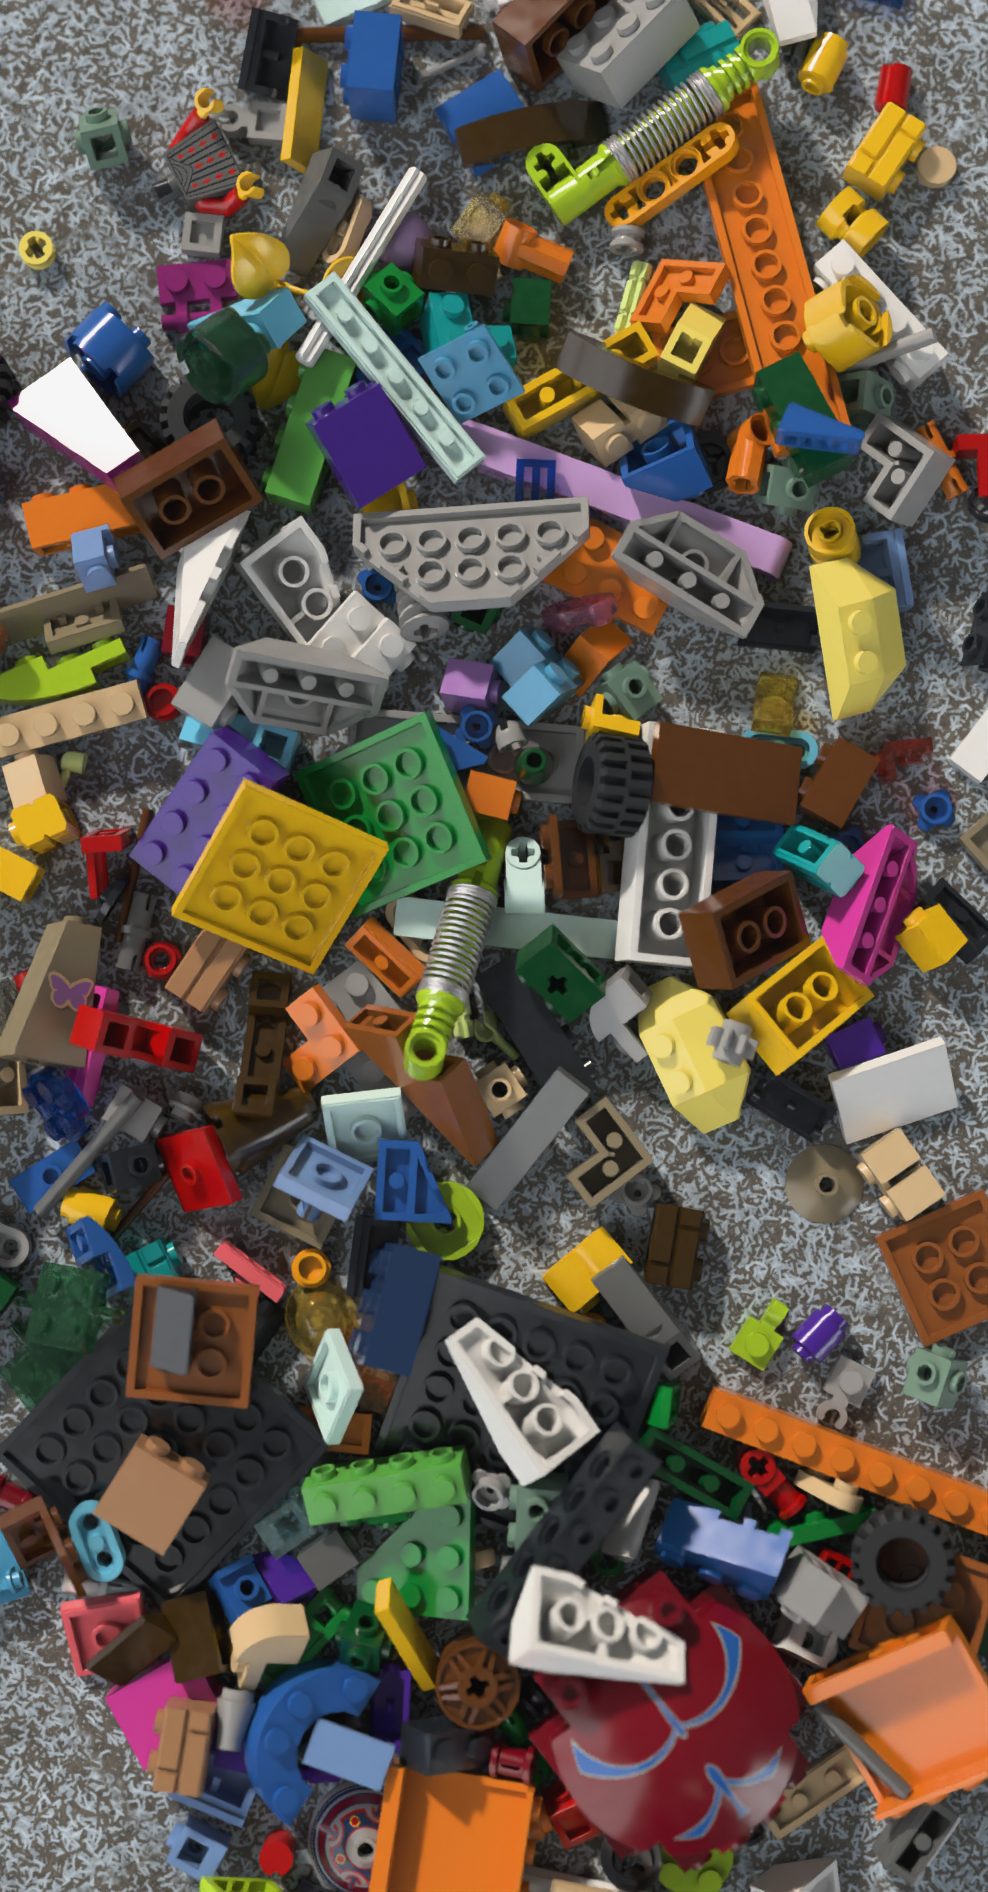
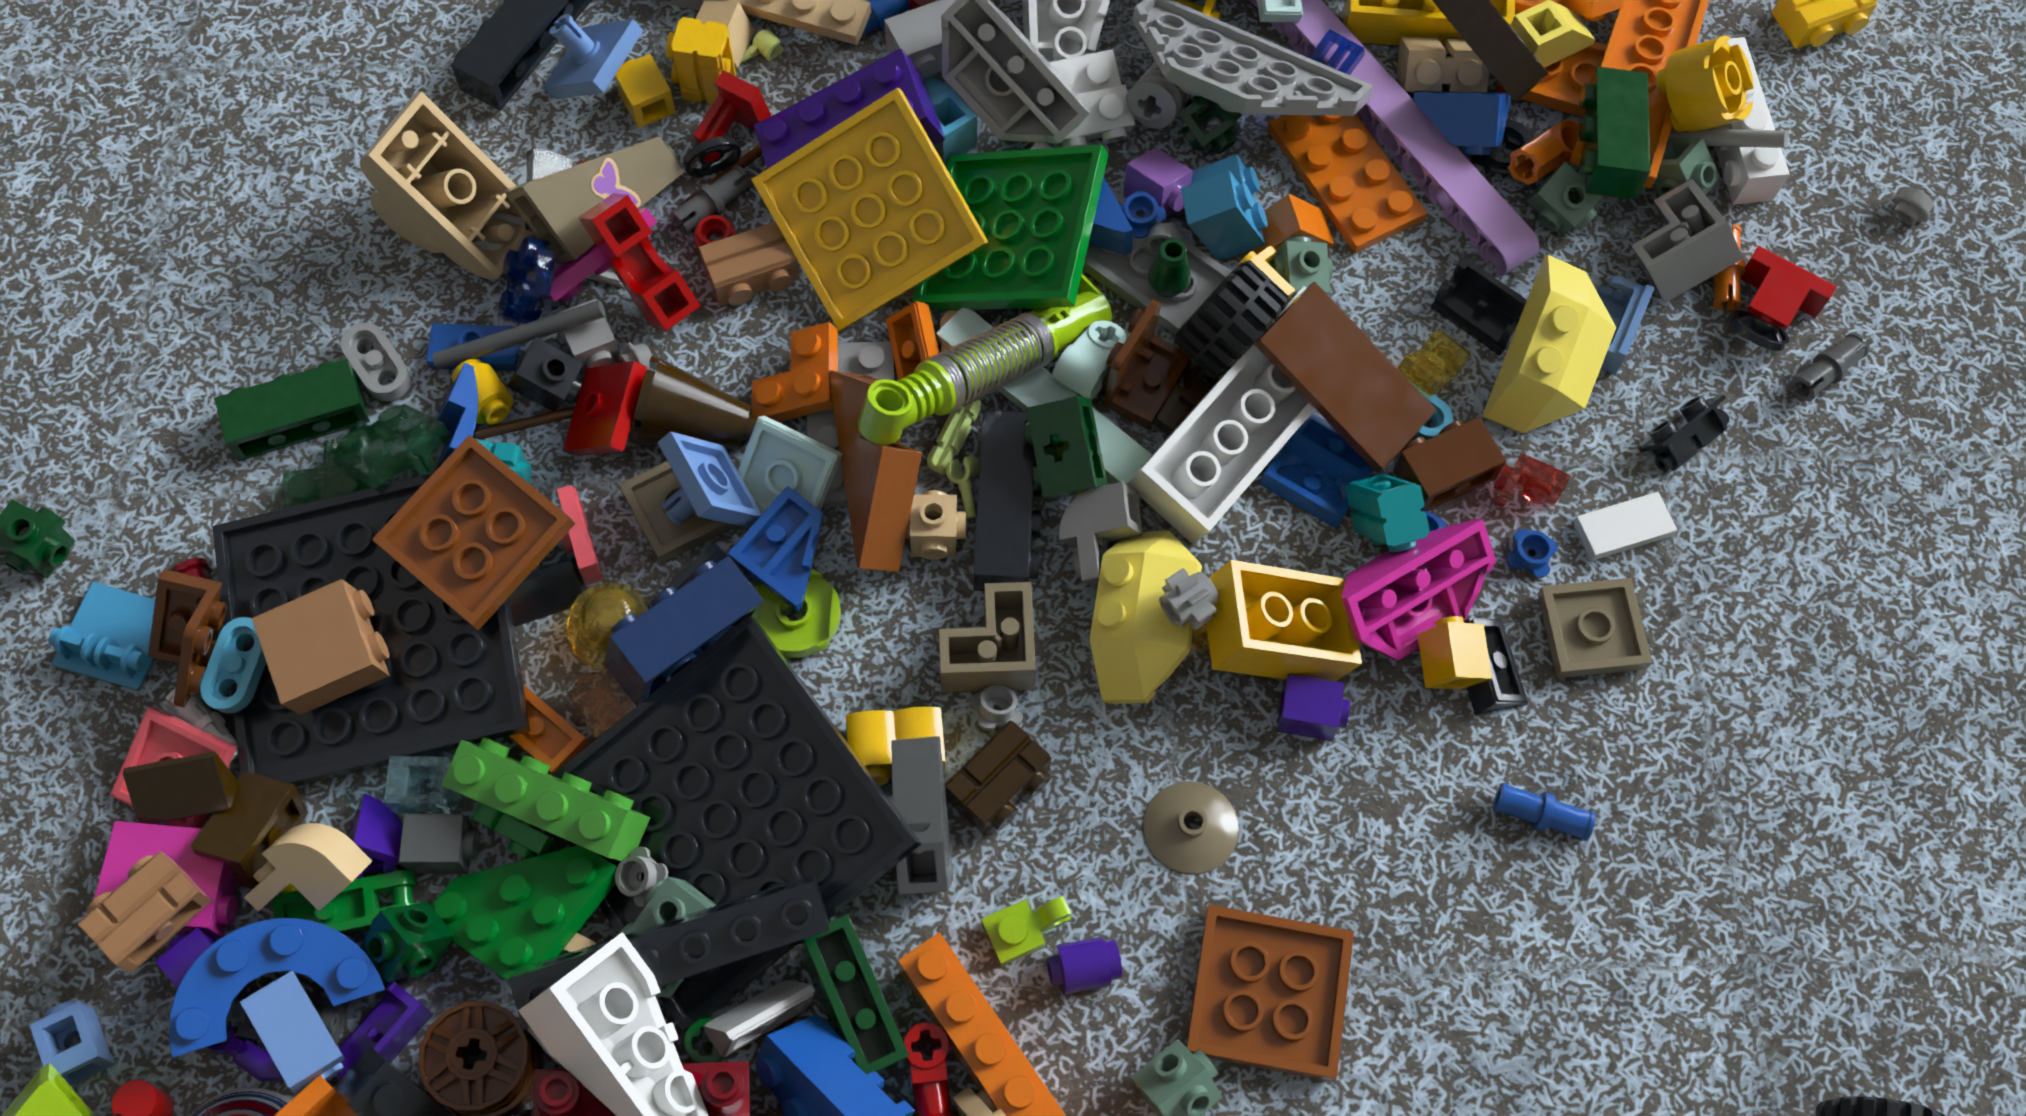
camera: 30 degrees right, 20 degrees down
(159, 700) = (873, 44): red plate -> none
(174, 1328) = (467, 500): slope -> none
(225, 1795) = (137, 999): medium blue hinge -> none
(227, 1591) = (330, 801): blue brick -> none
(233, 1717) = (215, 918): light grey cone -> none
(263, 1045) = (748, 353): dark brown slope -> none
(311, 1268) = (636, 573): light orange plate -> none
(333, 1386) = (567, 673): light aqua tile -> none
(368, 580) = (1130, 61): blue plate -> none
(406, 1634) = (446, 952): yellow tile -> none
(492, 795) = (1114, 270): orange brick -> none
(523, 1410) = (731, 808): white wedge -> none
(528, 1138) = (928, 580): dark grey tile -> none
(570, 613) = (1316, 188): clear pink plate -> none
(664, 1404) = (878, 915): green slope -> none
(691, 571) = (1425, 196): light grey wedge -> none
(744, 929) = (1271, 514): reddish brown brick -> none
(790, 1105) = (1208, 723): black hinge -> none
(817, 432) = (1624, 128): blue slope -> none
(832, 535) = (1586, 248): yellow wheel -> none
(847, 1384) = (1078, 1039): light grey plate -> none
(866, 224) = (1764, 35): yellow wheel -> none
(893, 1090) = (1322, 773): white tile -> none
(912, 1190) = (1274, 870): tan piece -> none
(936, 167) = (1866, 49): tan tile -> none

